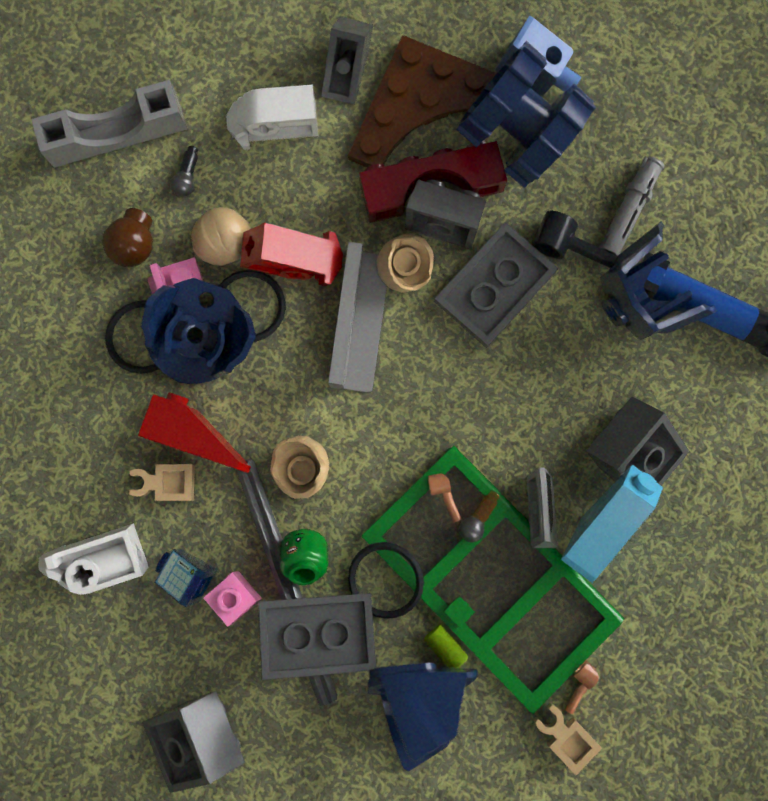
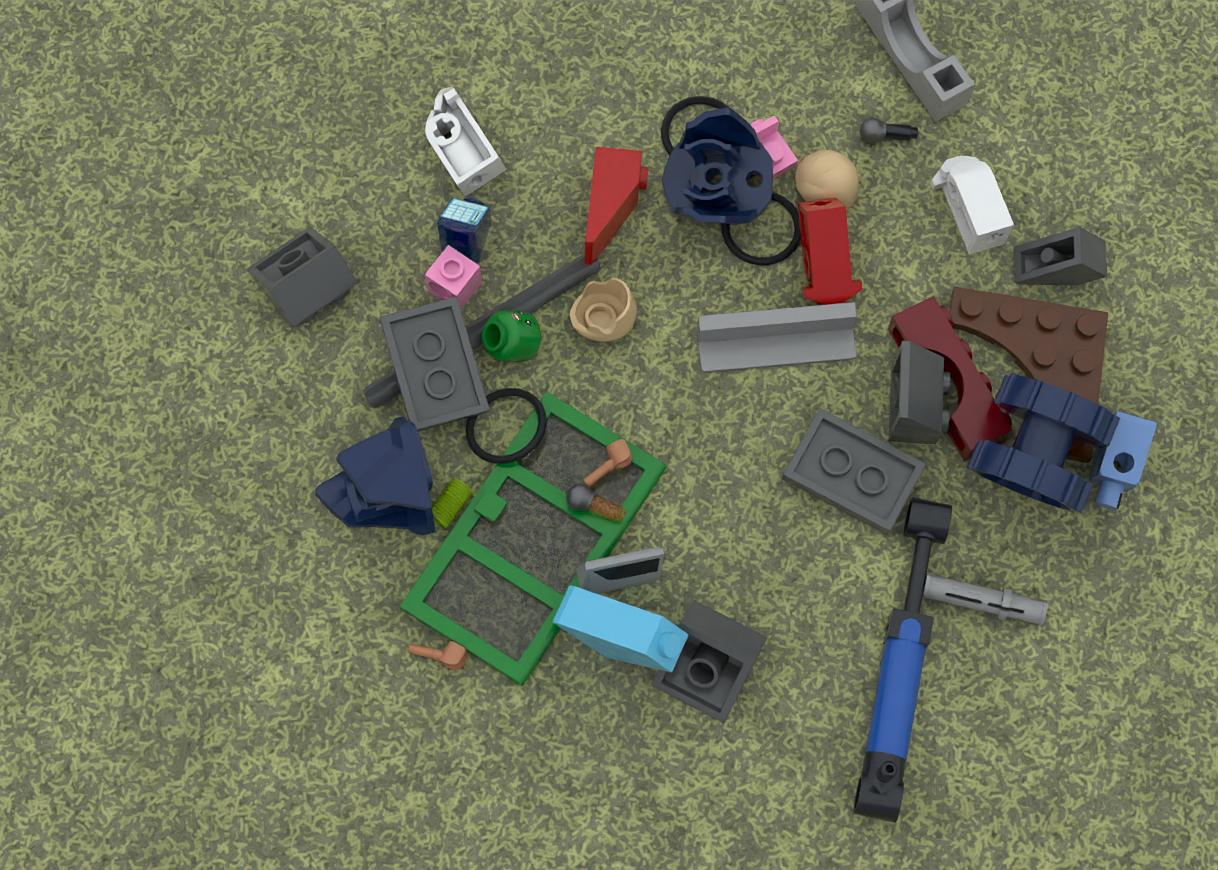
camera: 75 degrees right, 10 degrees down
(129, 238) = (798, 91): reddish brown piece -> none
(170, 482) = (555, 192): tan plate -> none
(405, 263) = (850, 369): tan hair -> none
(570, 741) = (378, 652): tan plate -> none
(629, 301) = (865, 600): dark blue piece -> none

